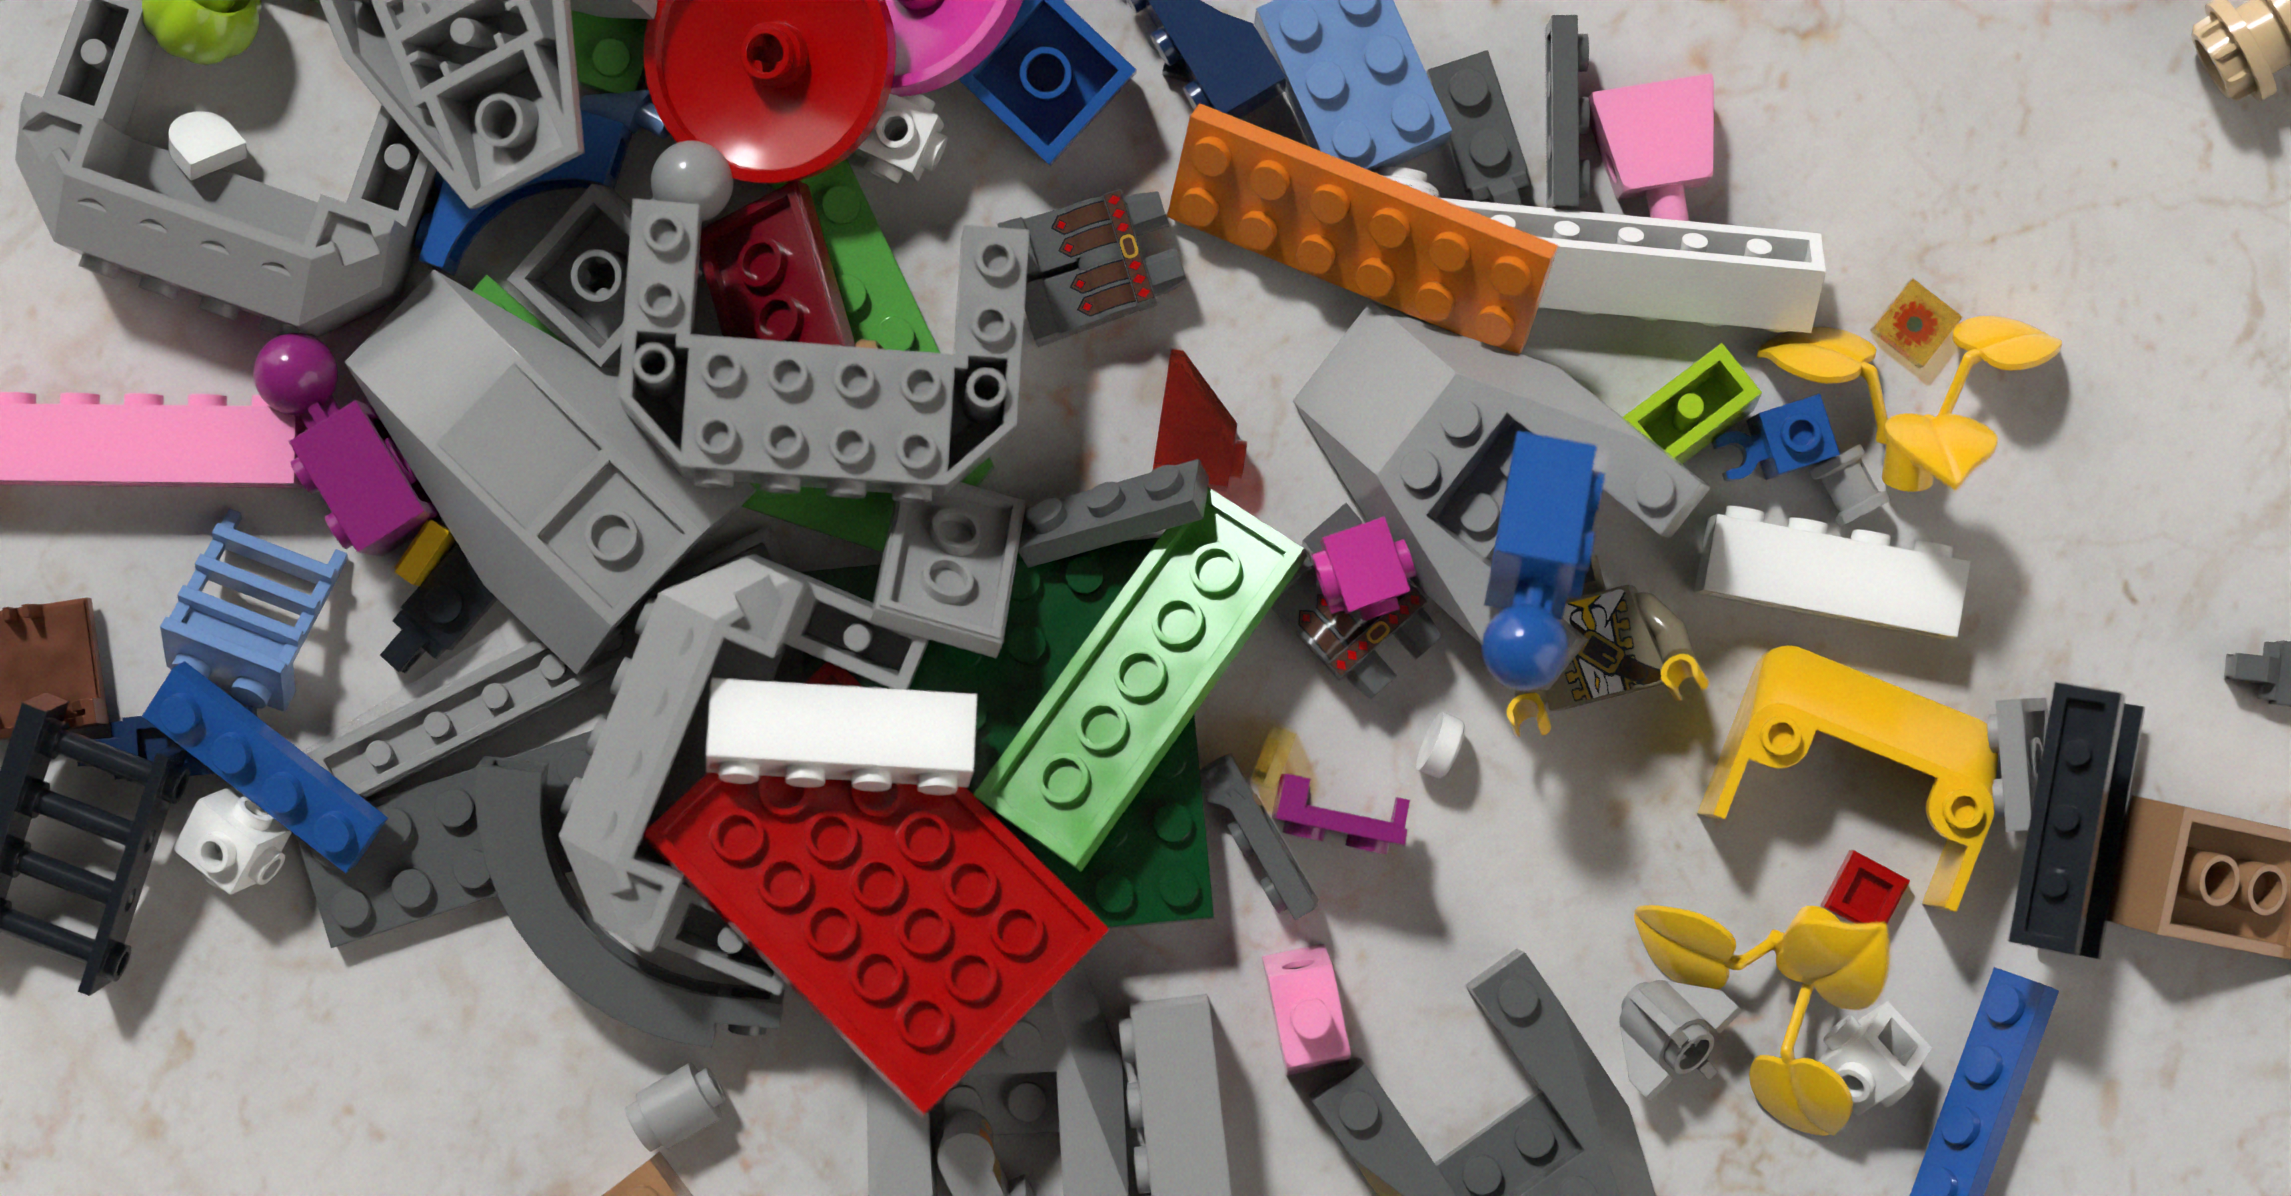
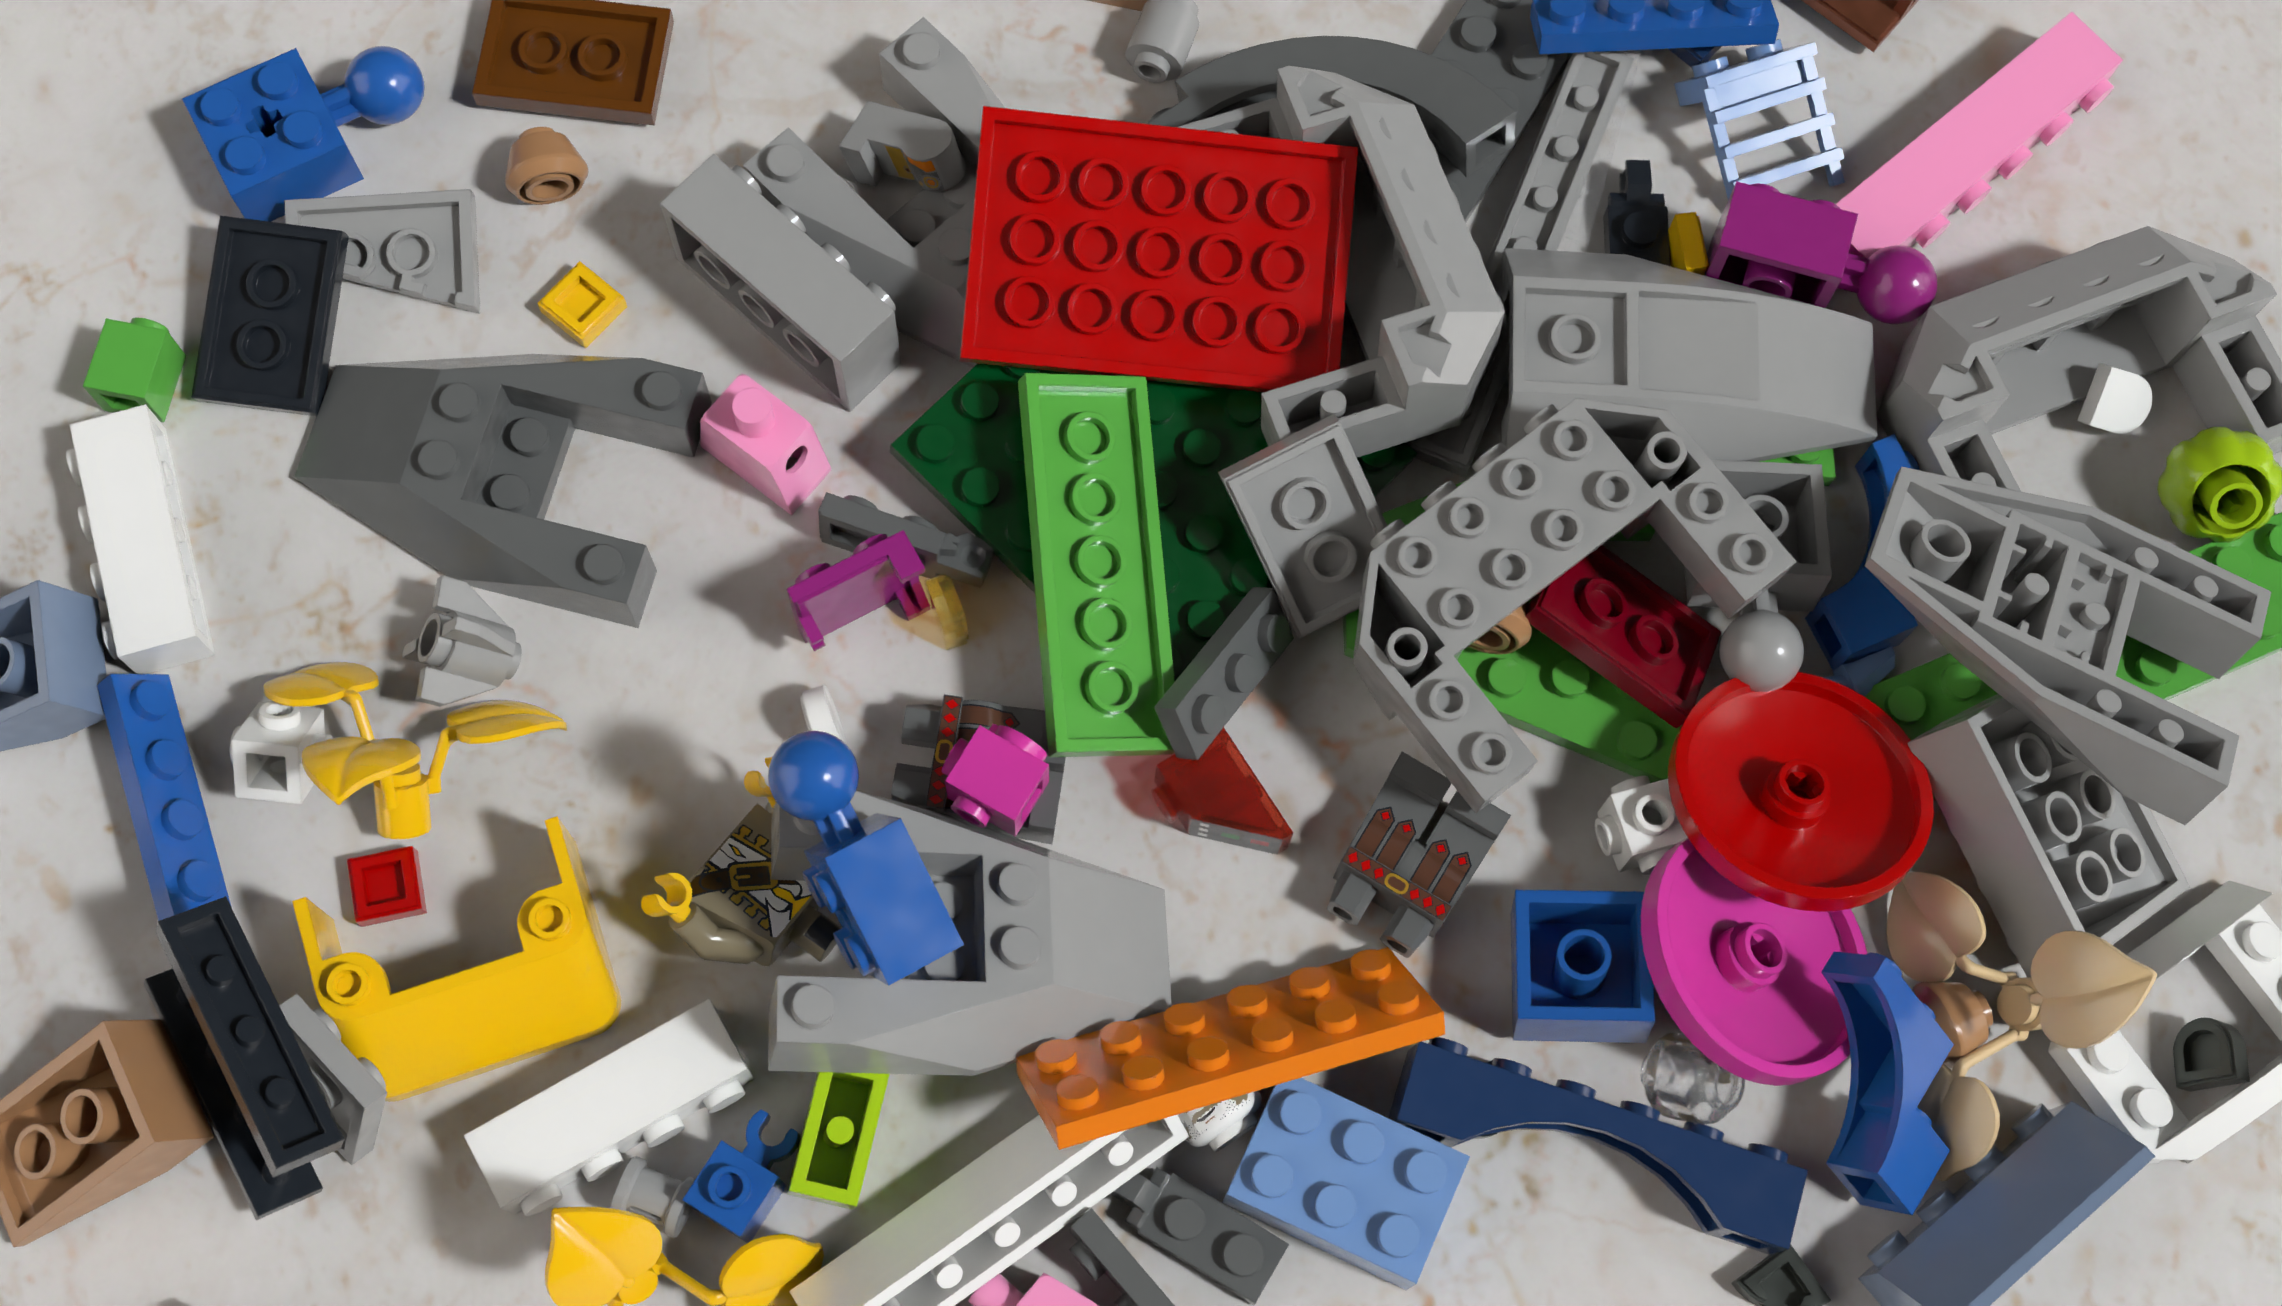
camera: 135 degrees right, 15 degrees down
(841, 735) = (1280, 328): white brick -> none

